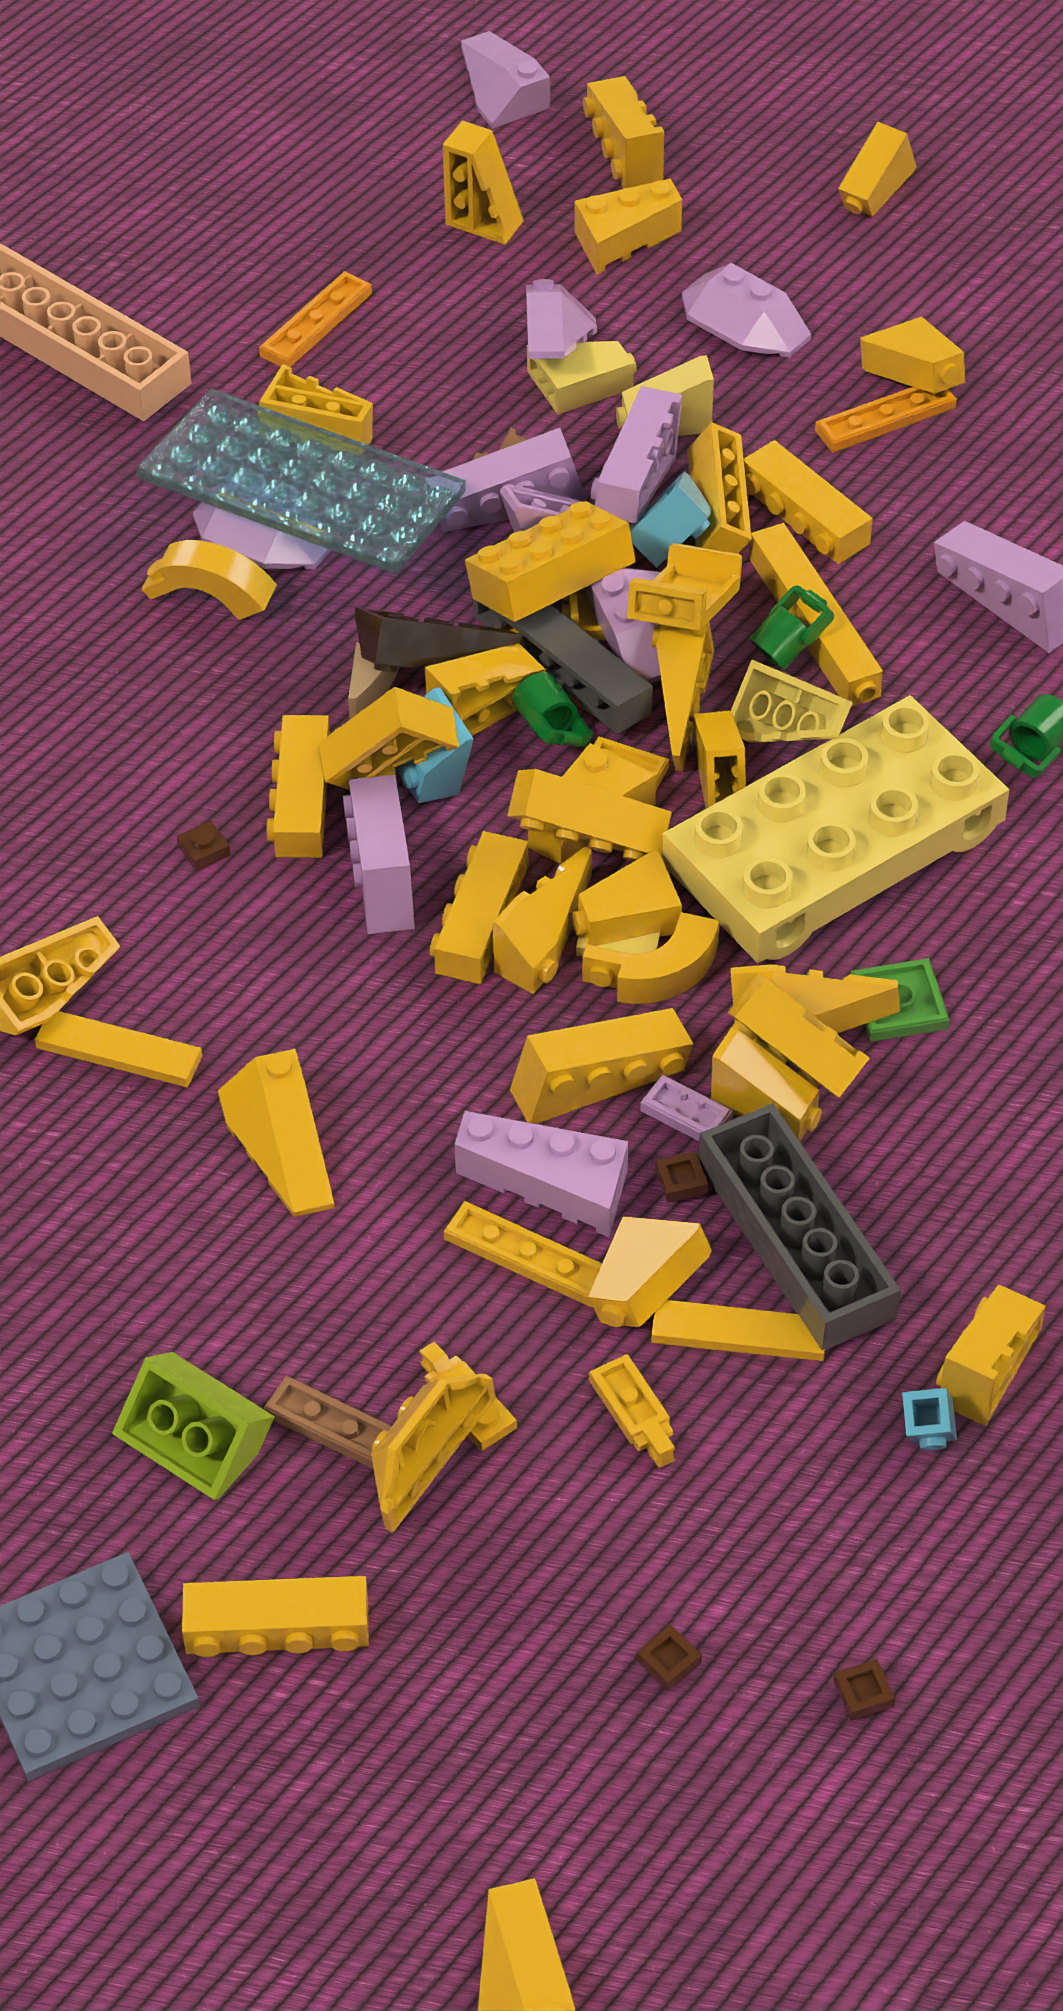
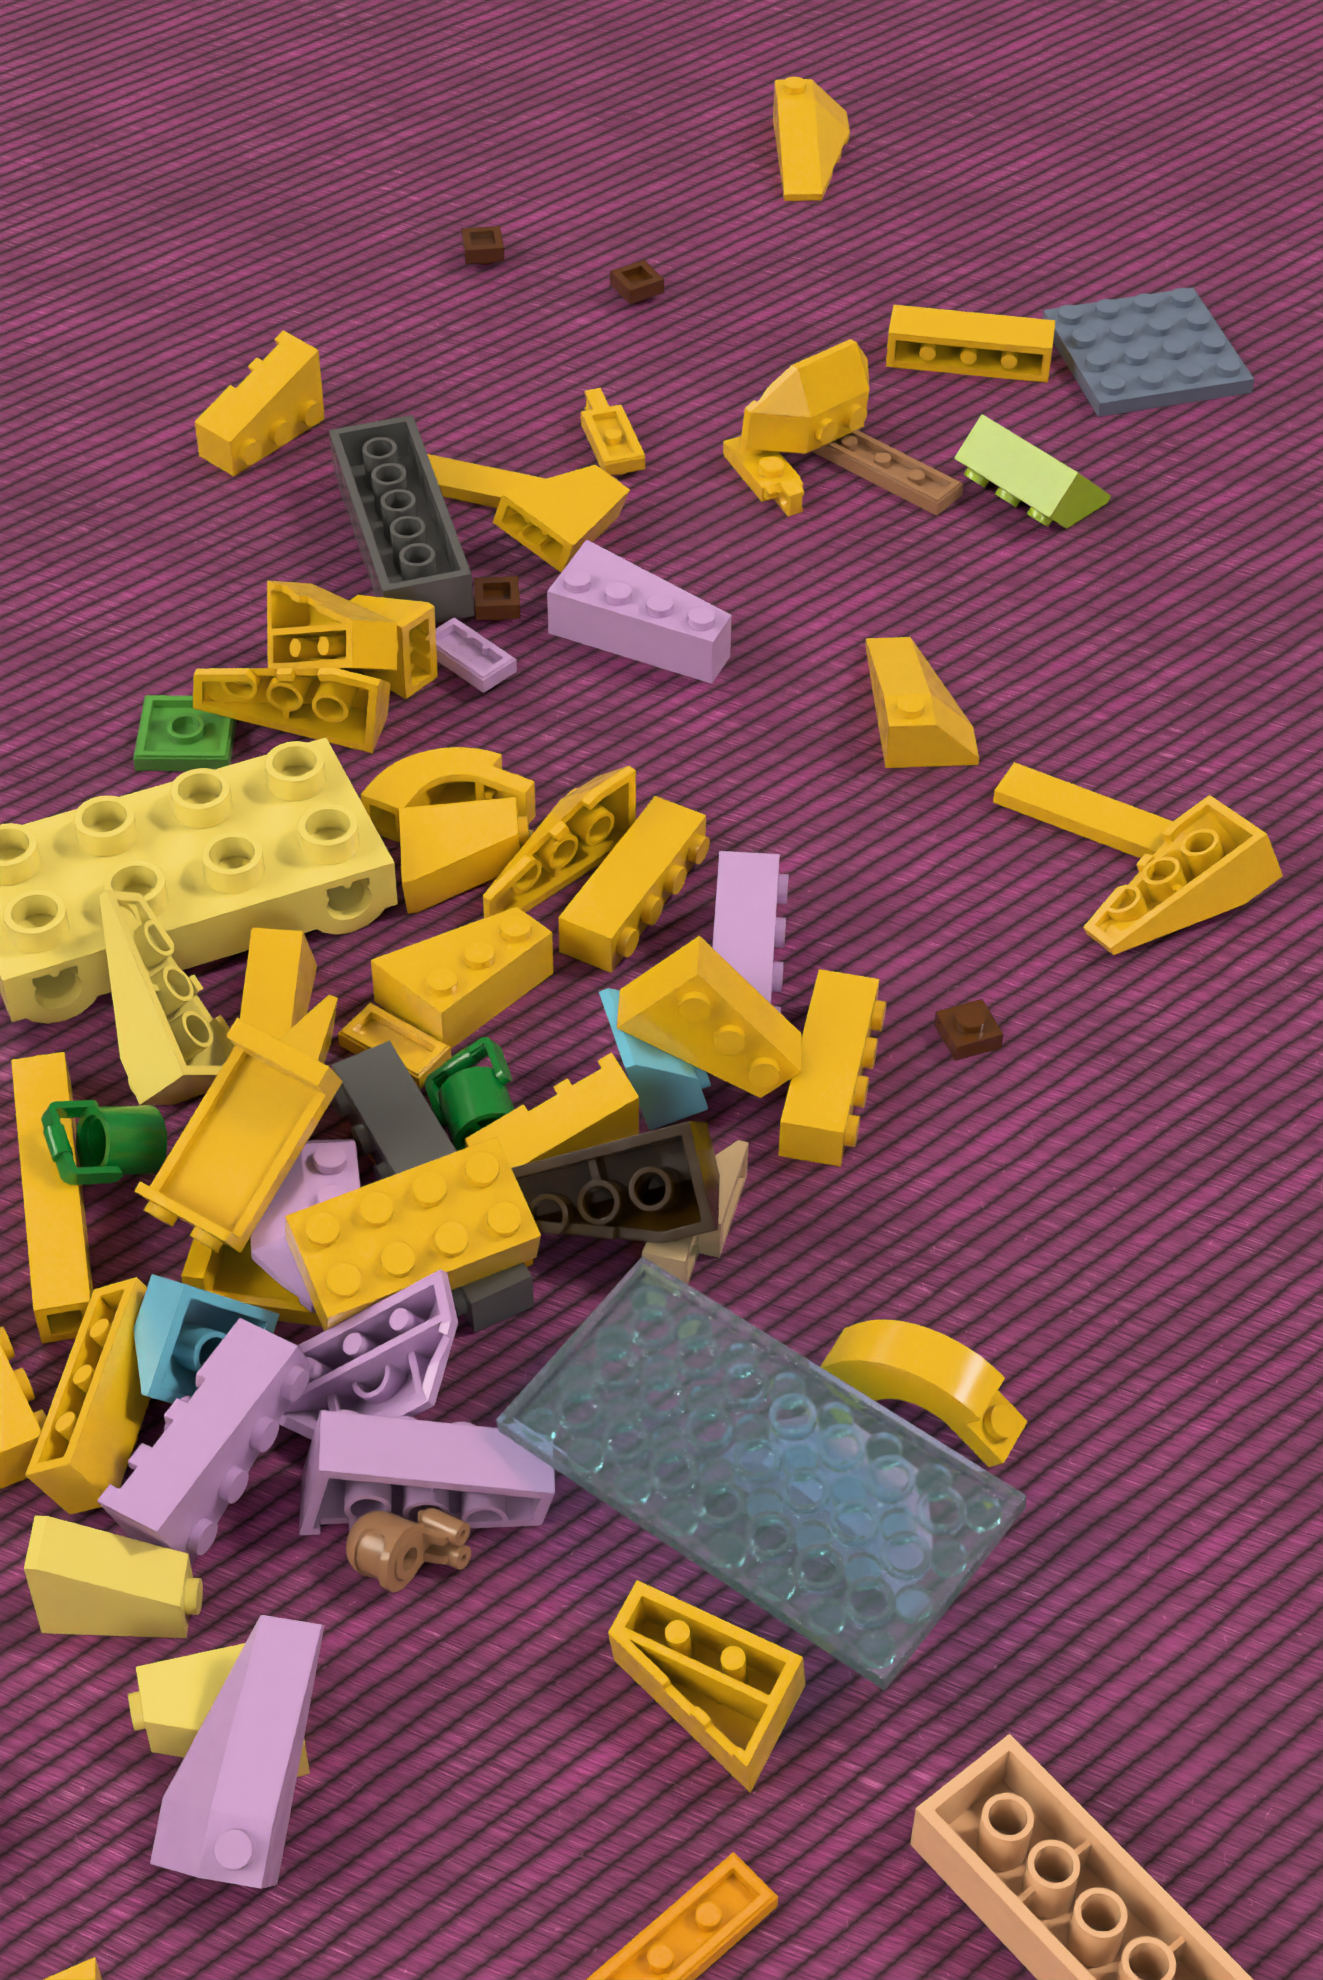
camera: 170 degrees left, 5 degrees down
(523, 1252) = (677, 567): yellow tile -> none
(588, 814) = (477, 893): yellow brick -> none
(597, 1061) = (548, 690): yellow wedge -> none
(929, 1418) = (344, 372): medium azure brick -> none

